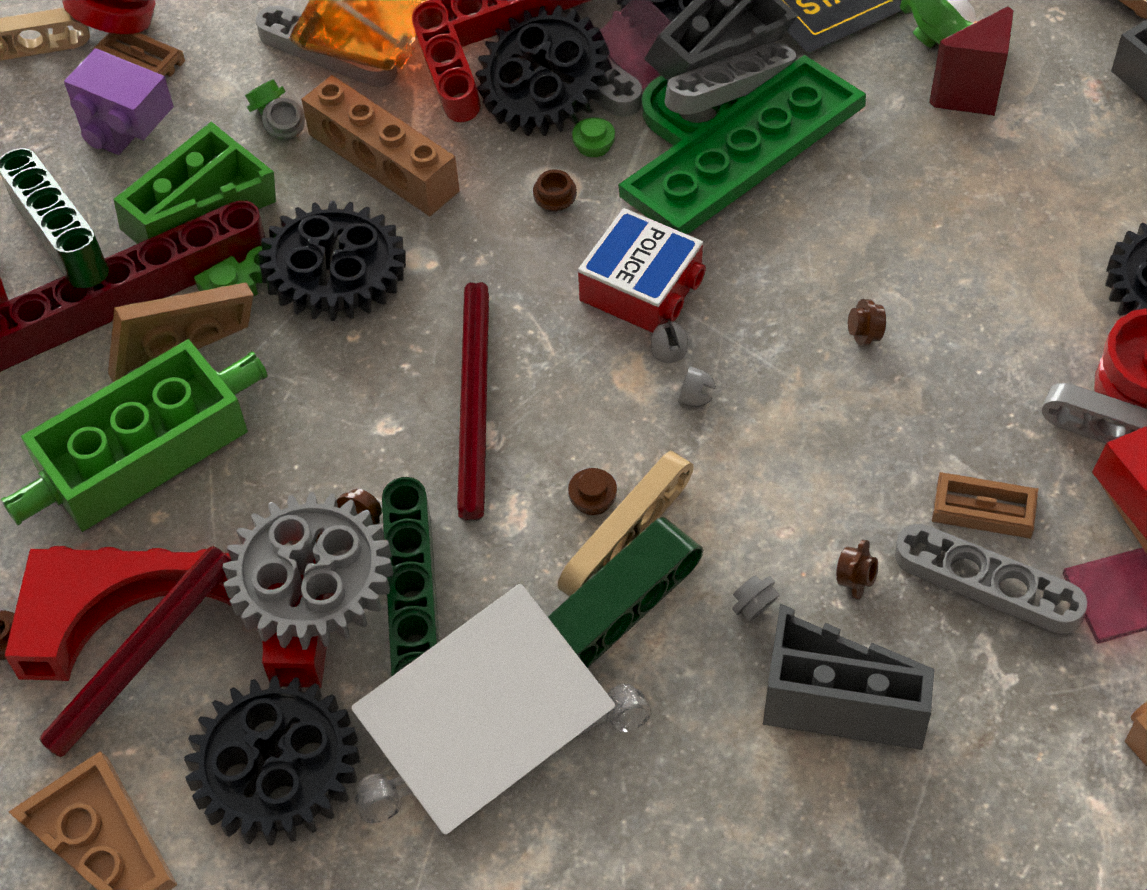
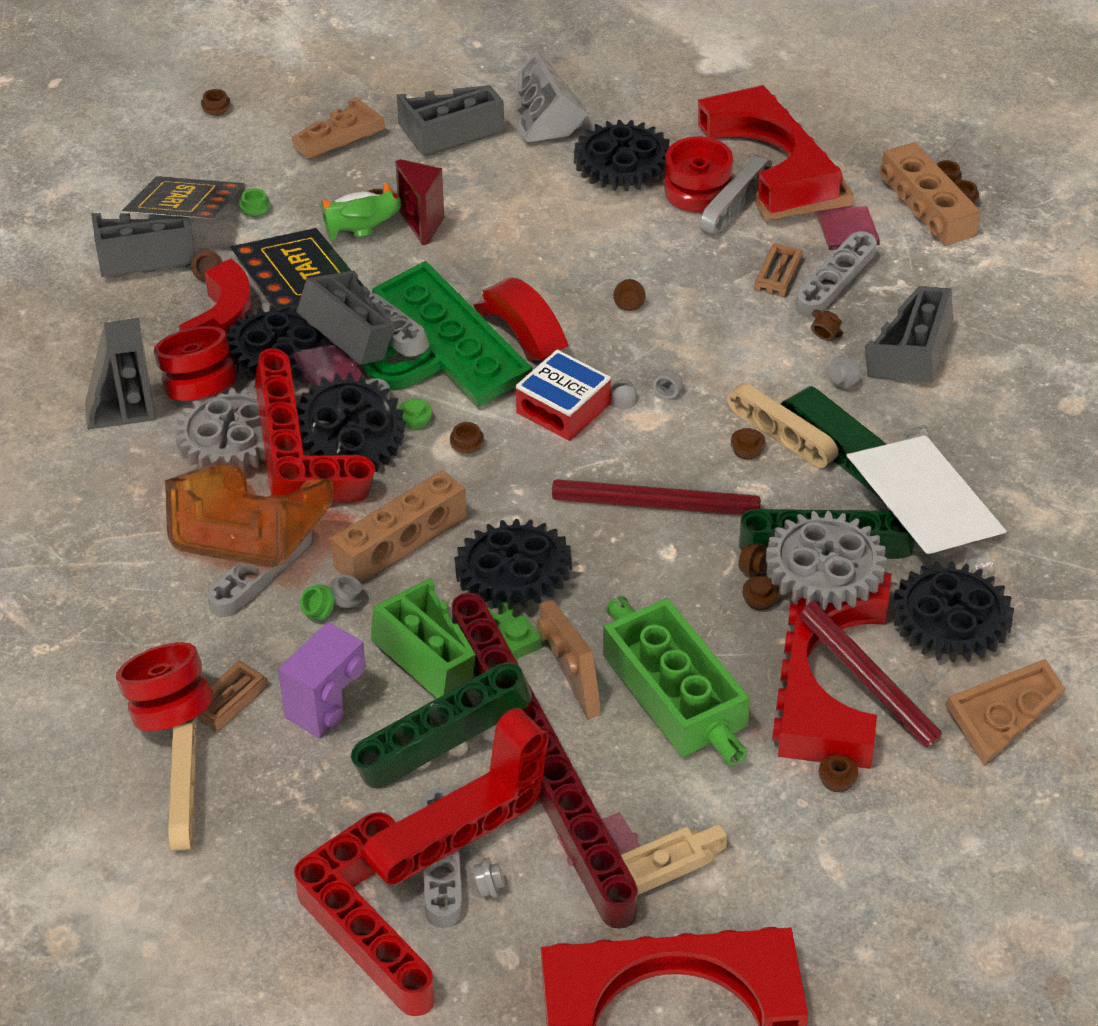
camera: 85 degrees left, 10 degrees down
(766, 200) = (527, 316): none -> red arch

